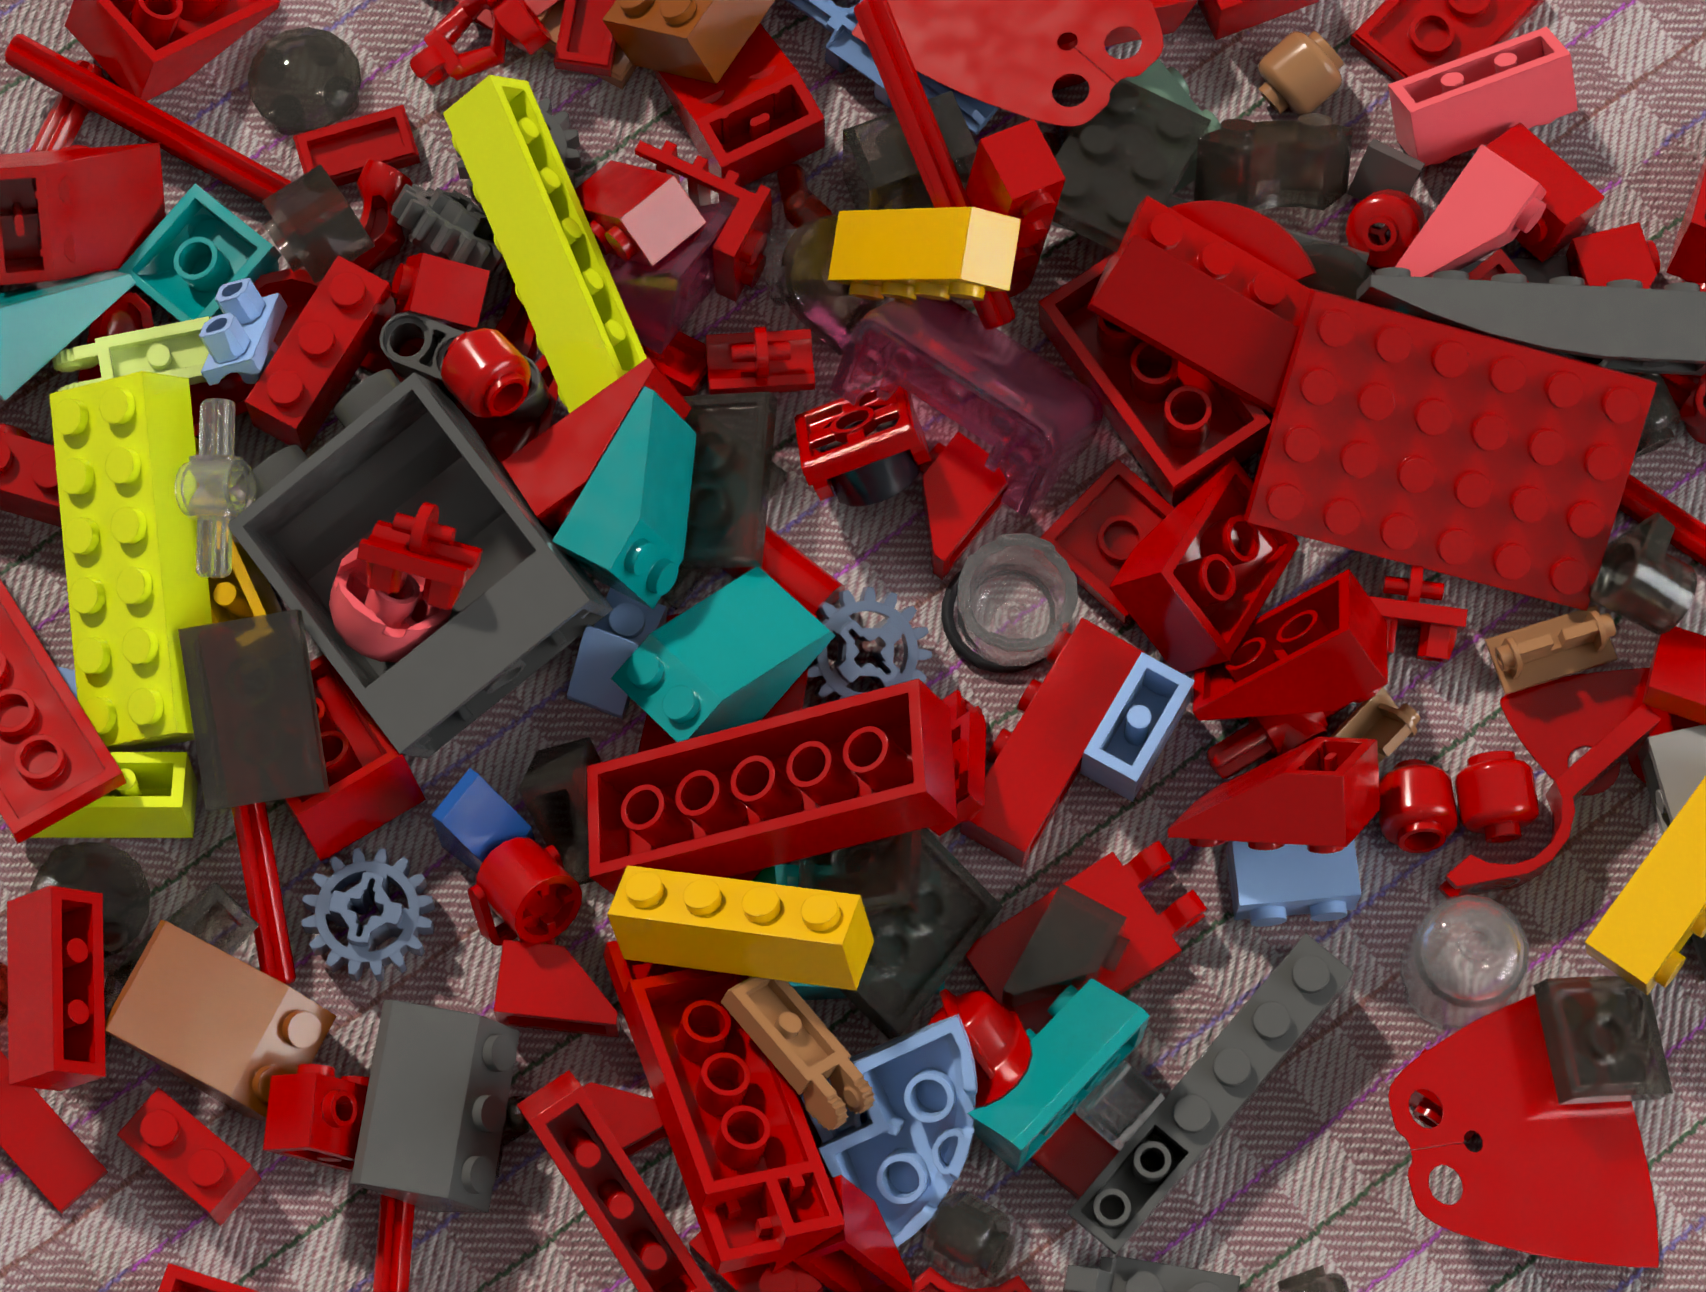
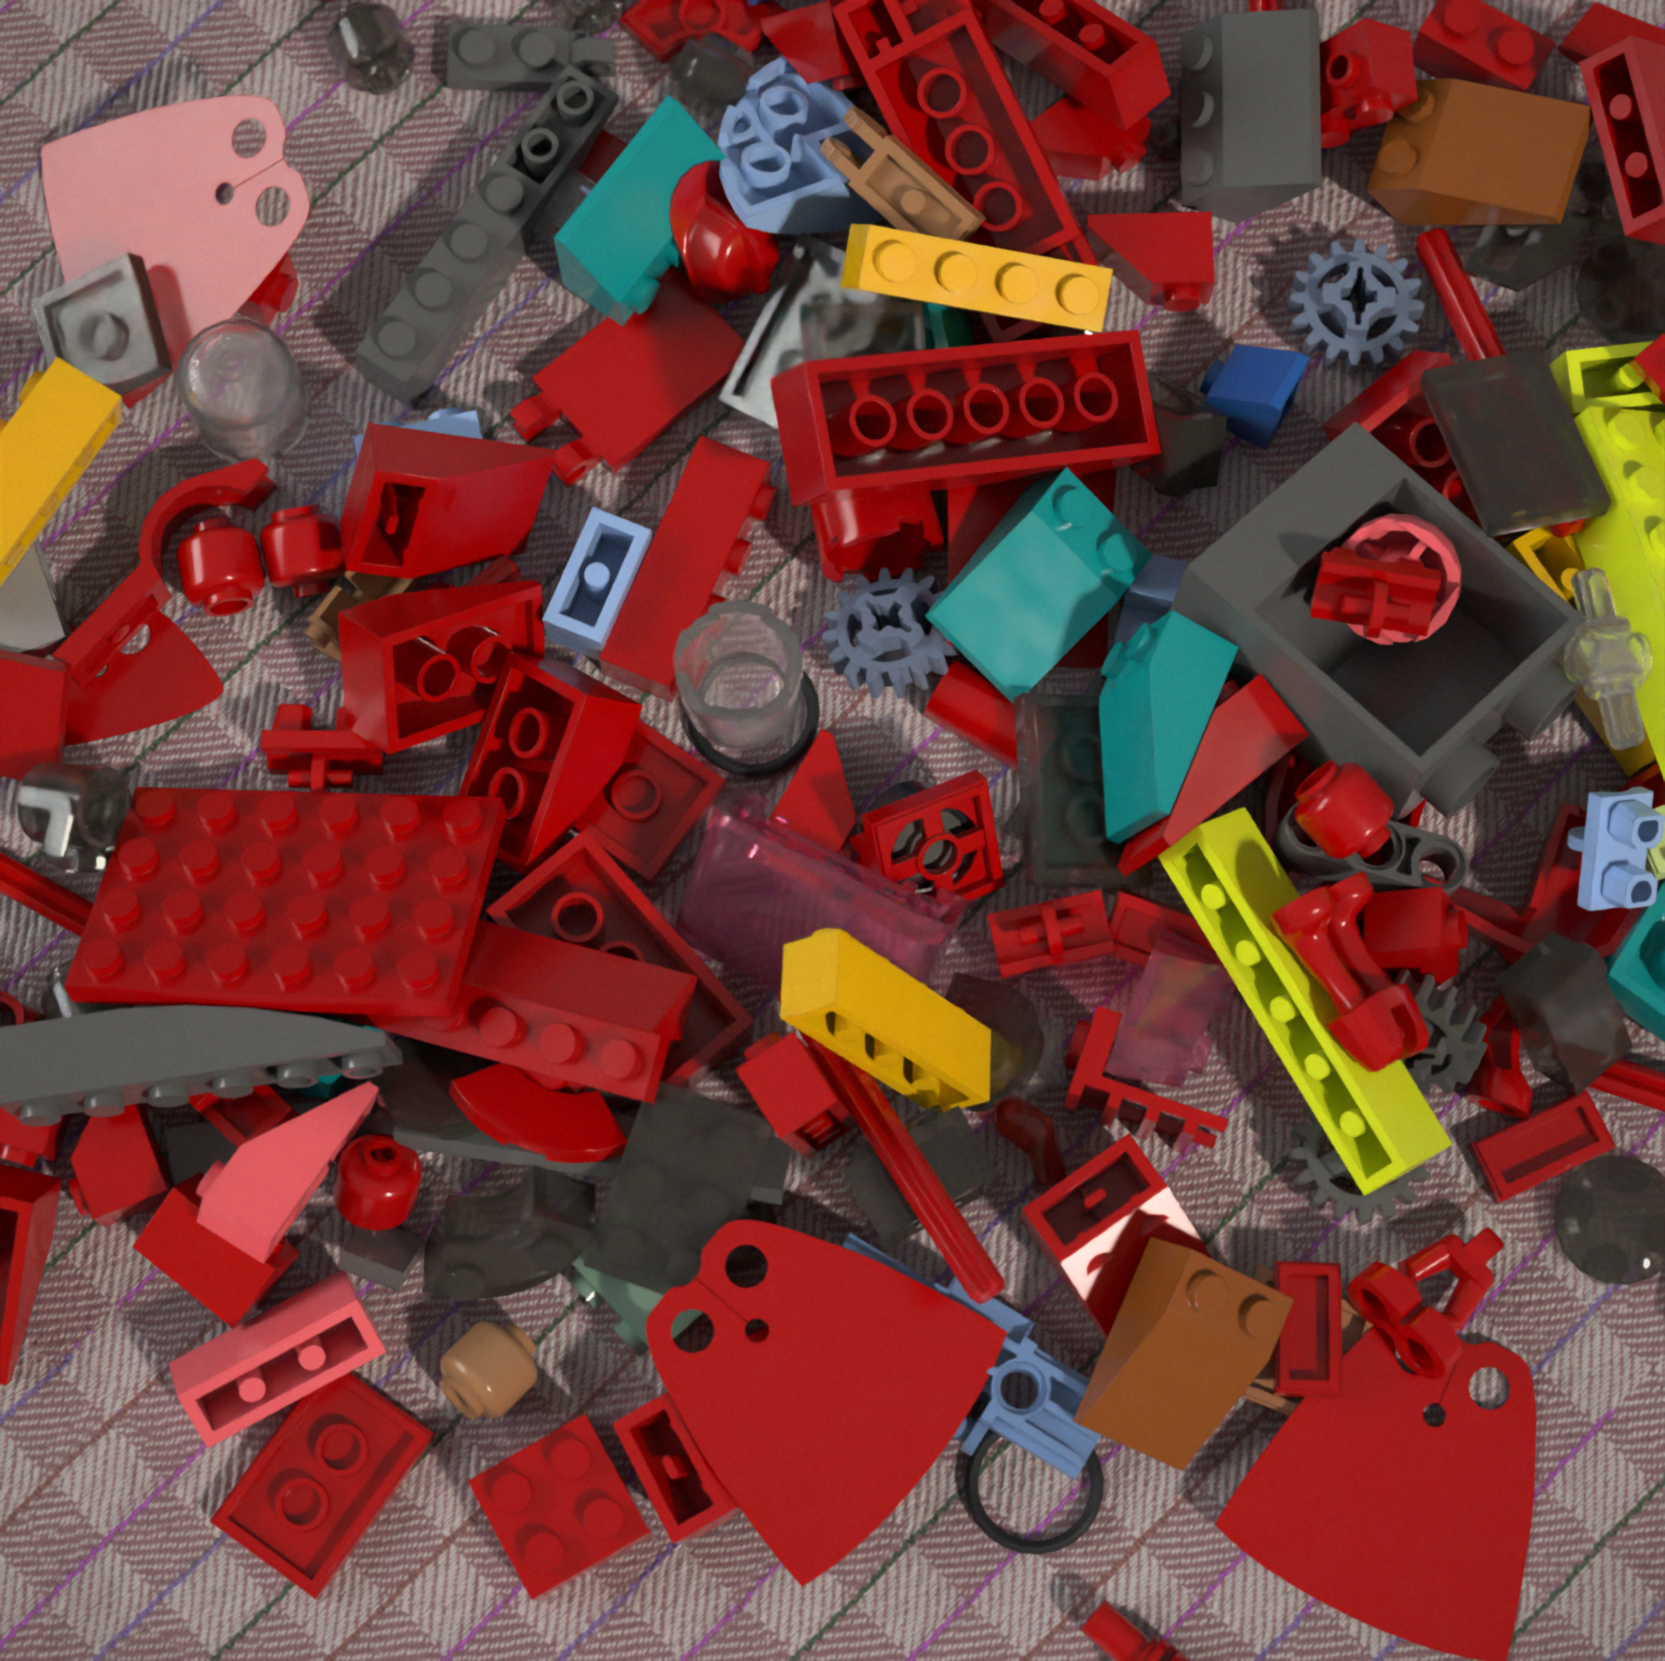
camera: 175 degrees right, 5 degrees up
(320, 354) = (1529, 847): red brick -> none
(483, 206) = (1374, 1016): none -> red piece
(526, 891) = (1198, 329): red piece -> none
(637, 212) = (1220, 1057): red brick -> none
(969, 755) = (781, 532): red hinge -> none
(1067, 948) = (646, 345): clear smoke slope -> none
(1552, 649) = (173, 742): medium nougat hinge -> none

